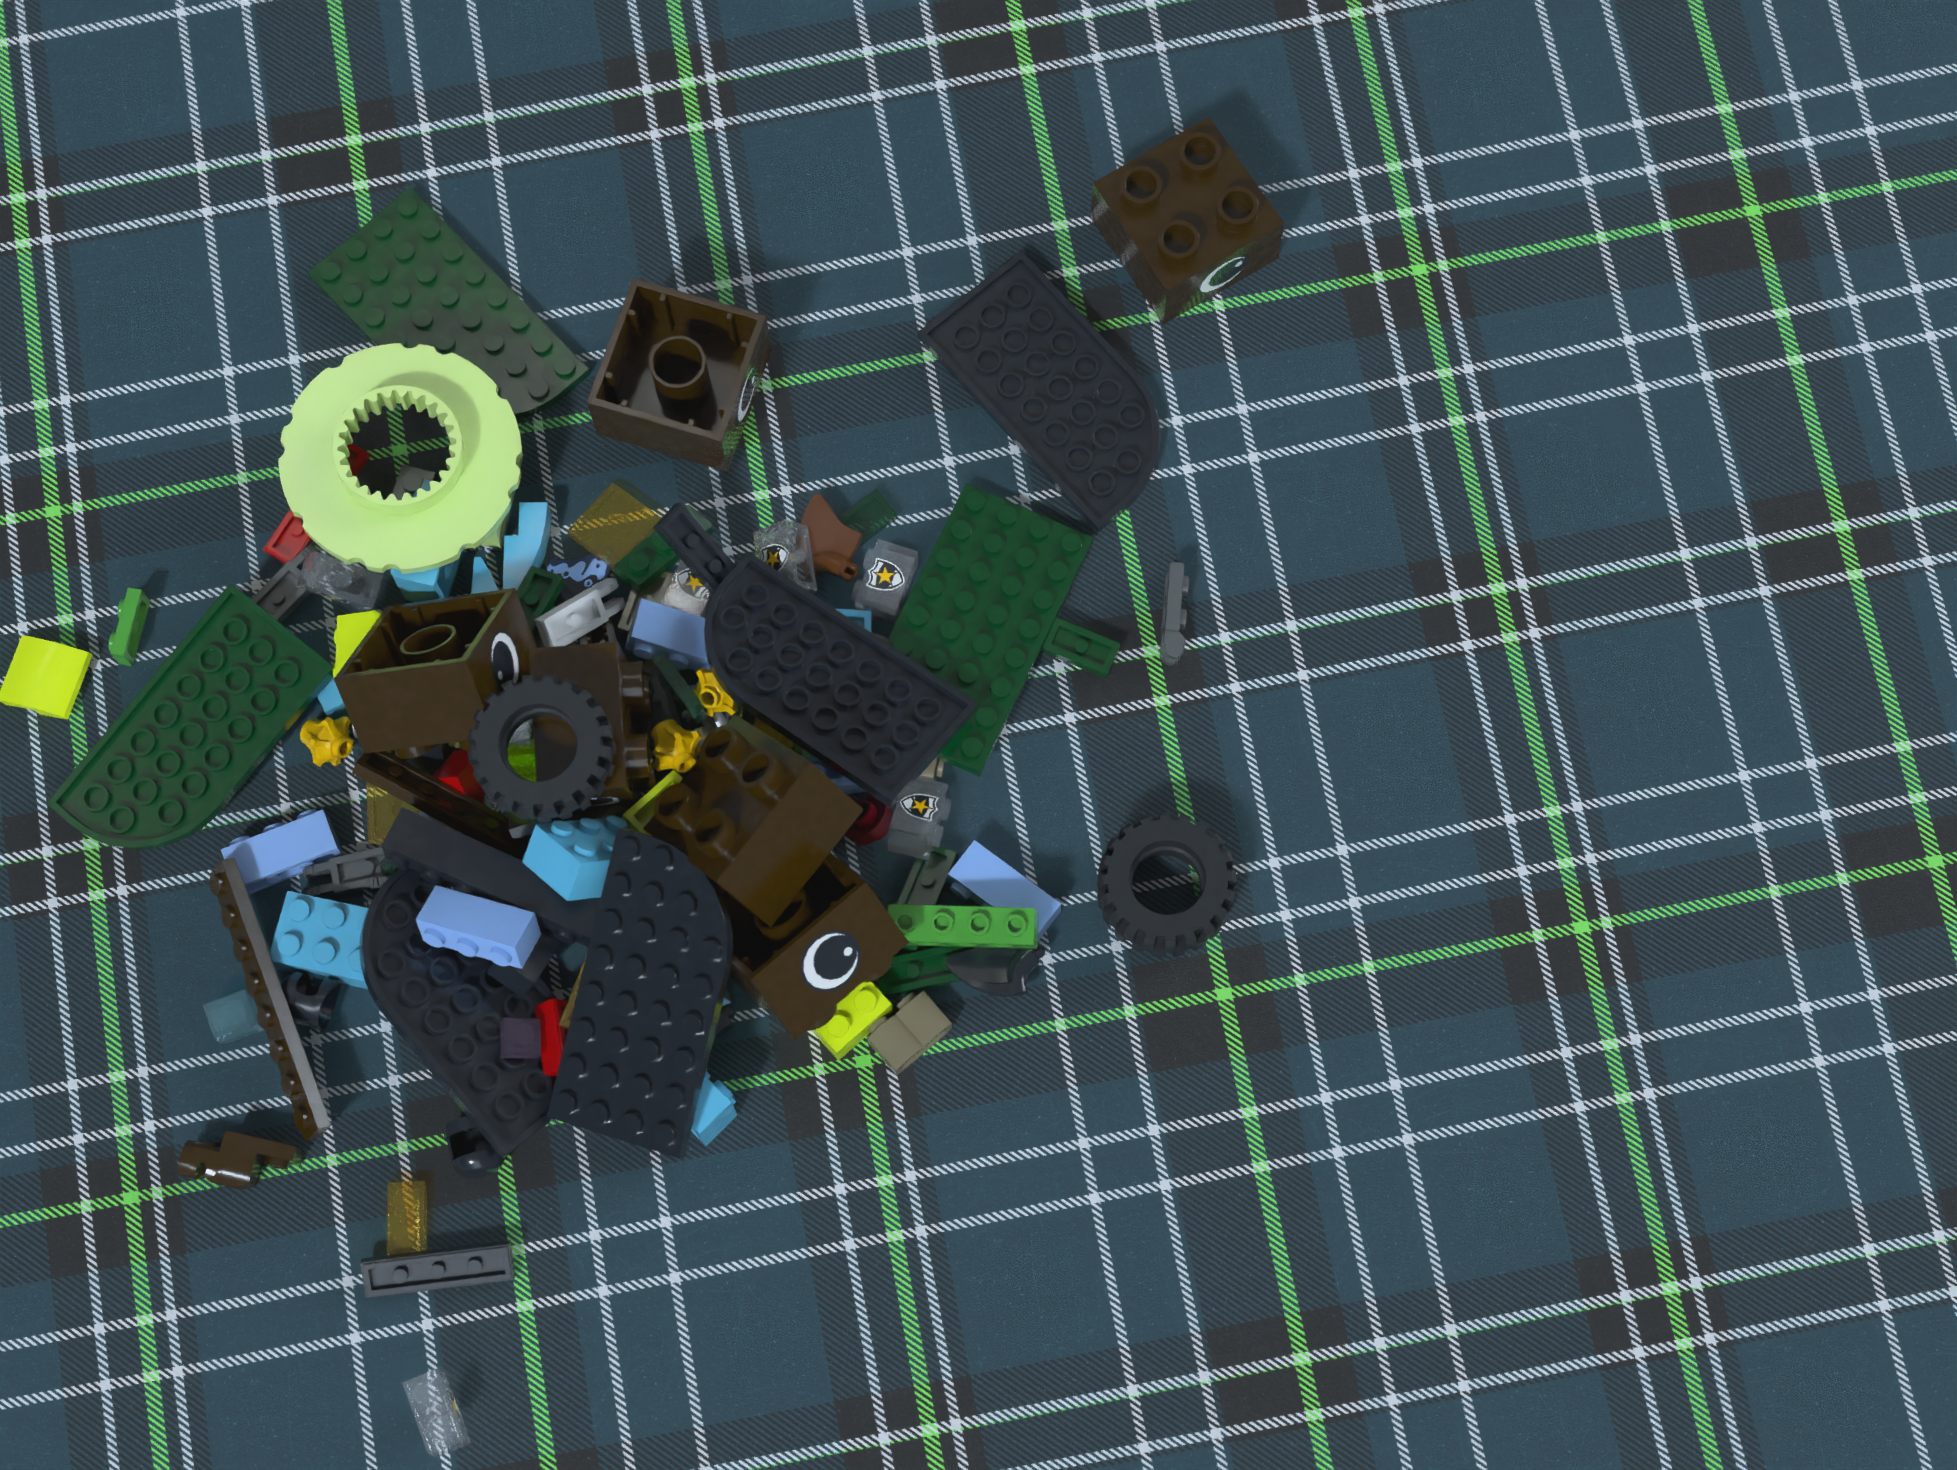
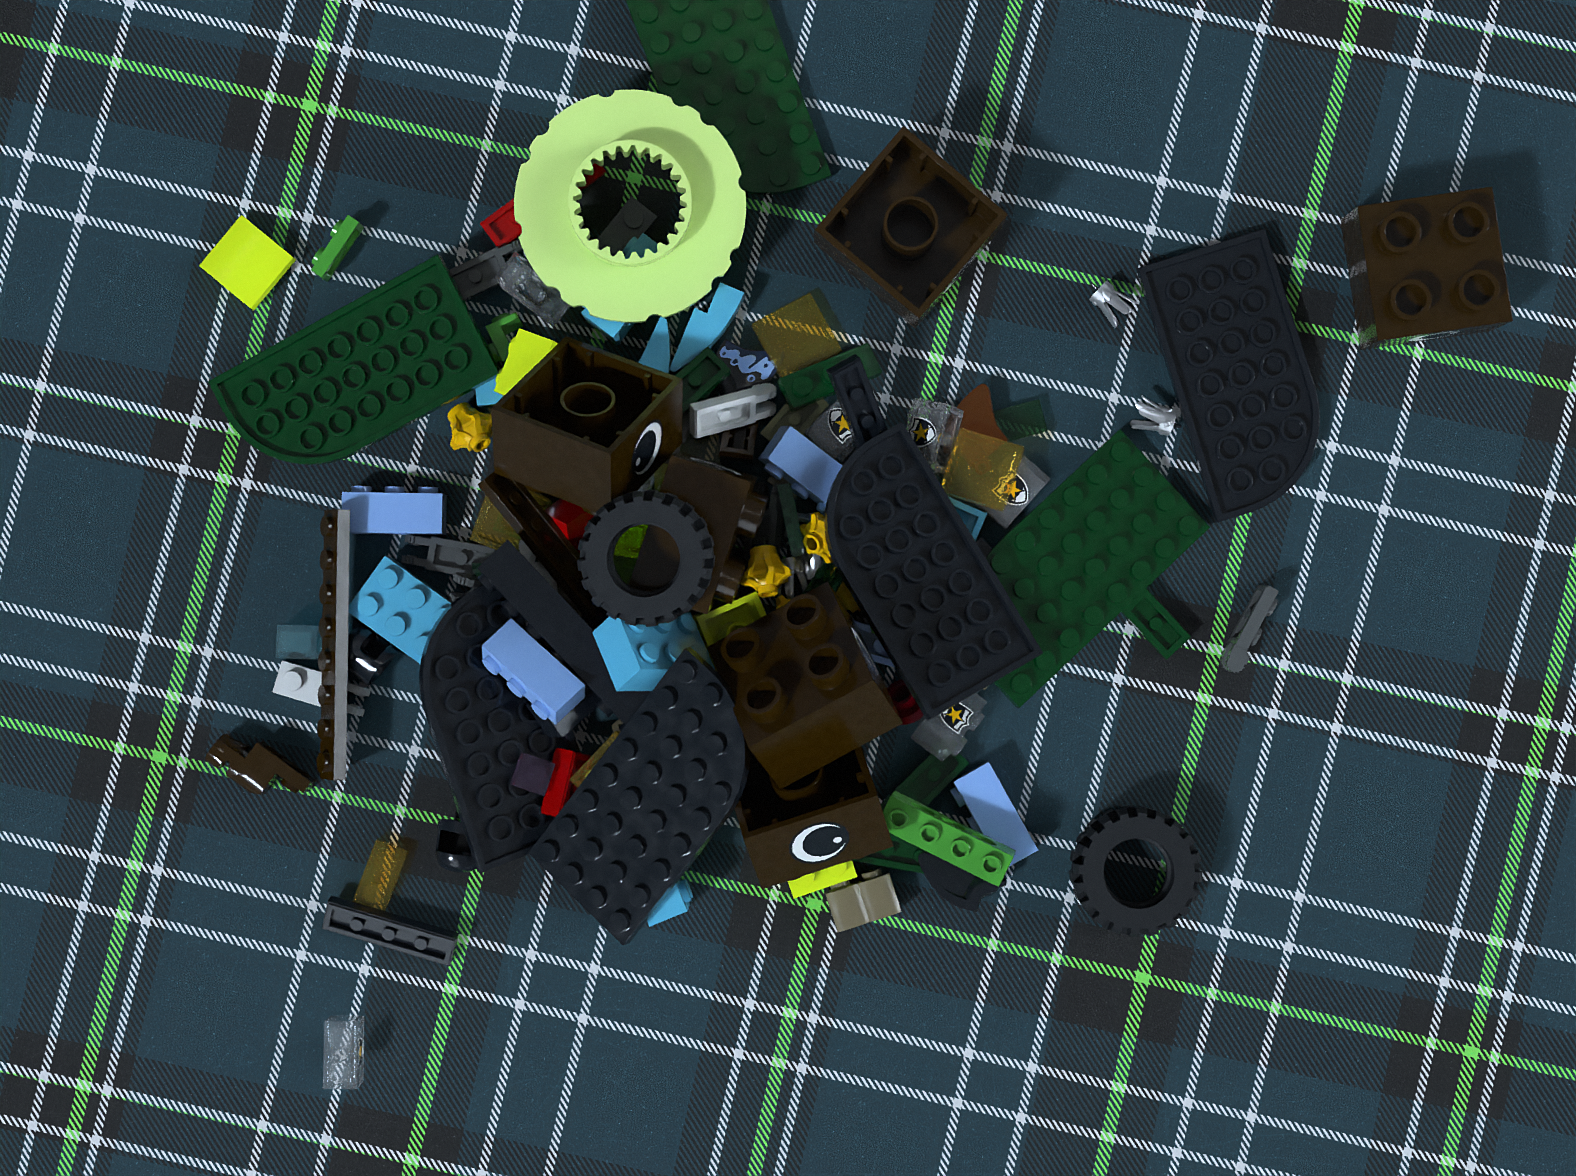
camera: 25 degrees right, 15 degrees up
(253, 1061) = (303, 685): none -> white hinge
(322, 636) = (498, 329): none -> bright green bracket
(848, 568) = (982, 469): none -> clear yellow tile
(899, 368) = (1108, 294): none -> flat silver piece
(1001, 455) = (1163, 418): none -> flat silver piece

